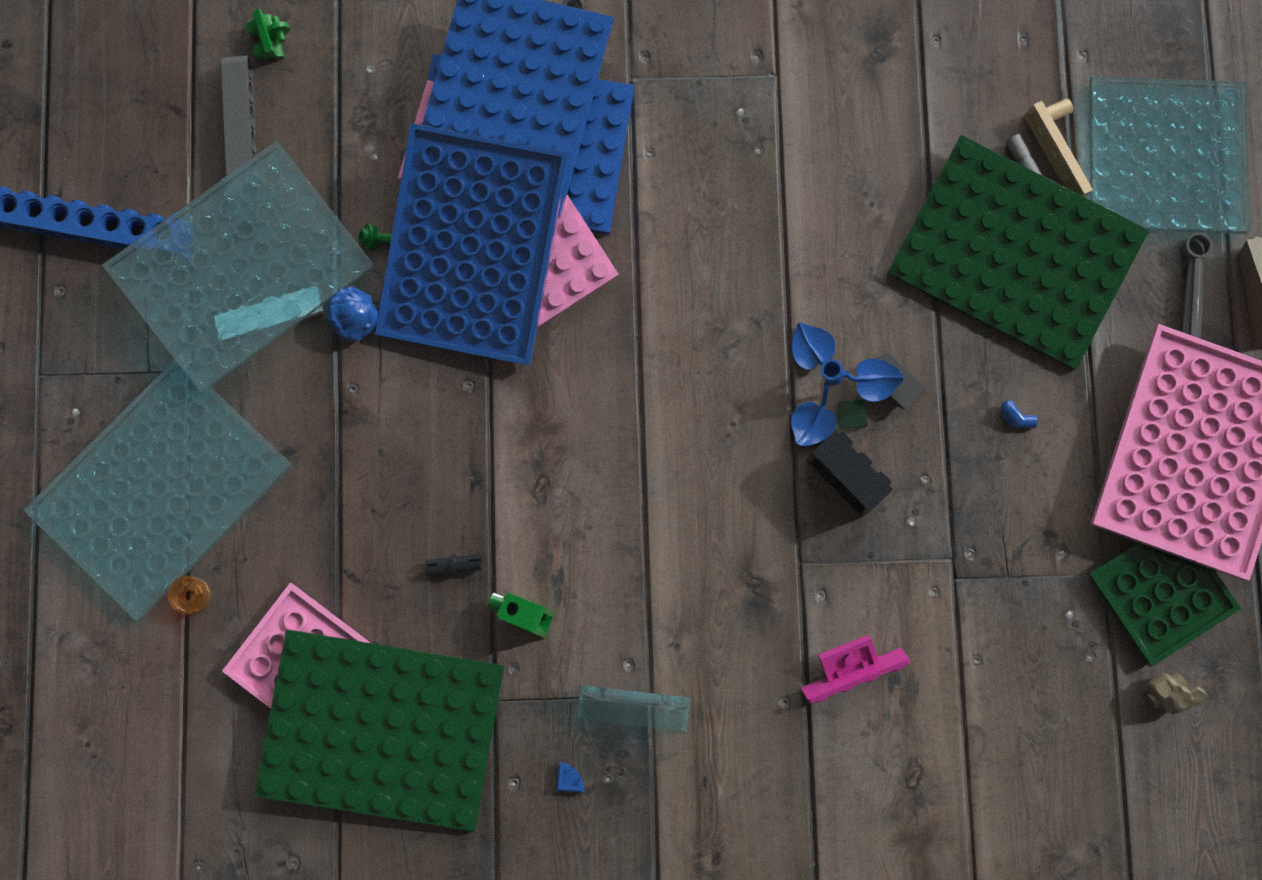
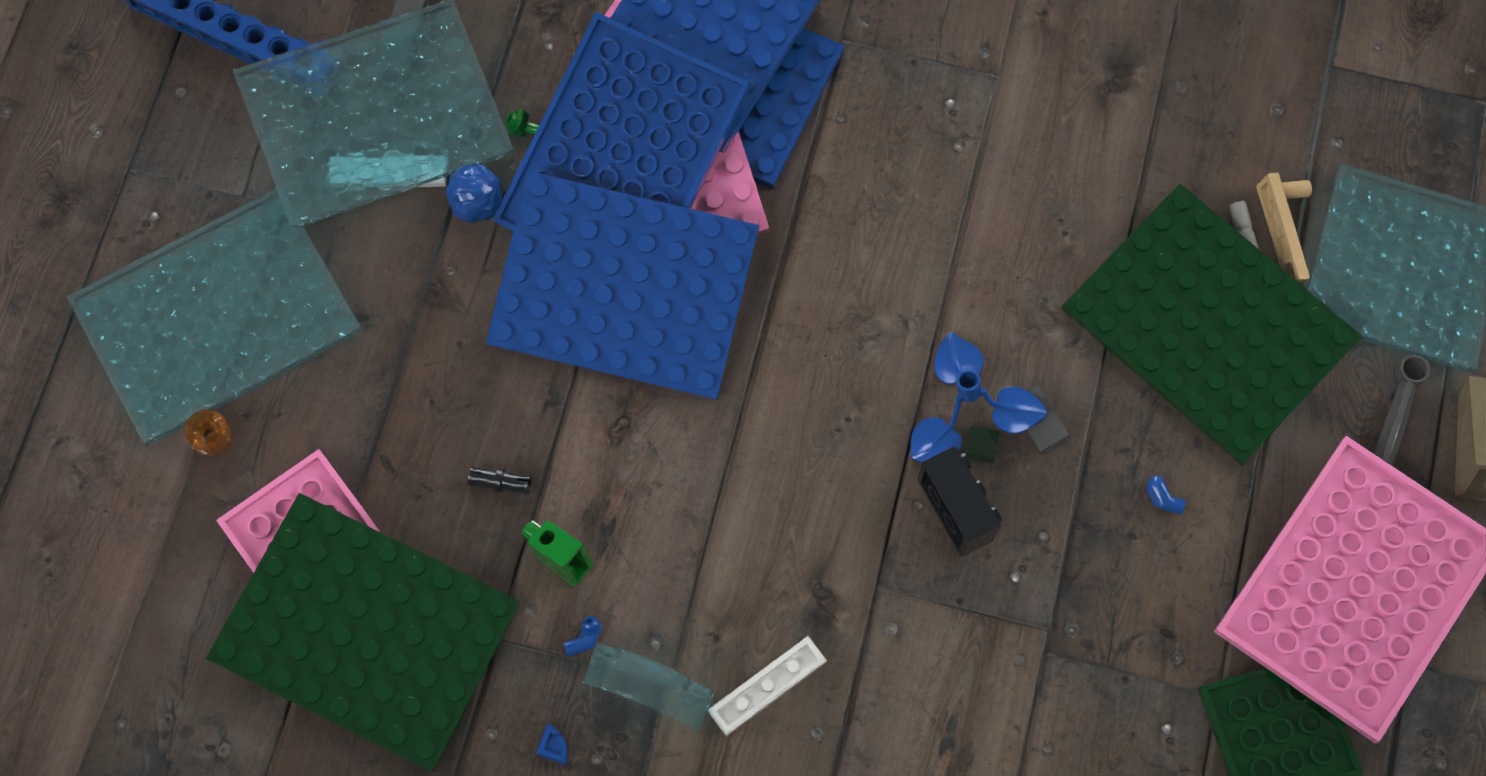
camera: 15 degrees right, 10 degrees down
(507, 362) = (622, 285): none -> blue plate
(570, 679) = (587, 638): none -> blue arm
(732, 676) = (767, 686): none -> white tile
(851, 666) = (903, 709): dark pink bracket -> none

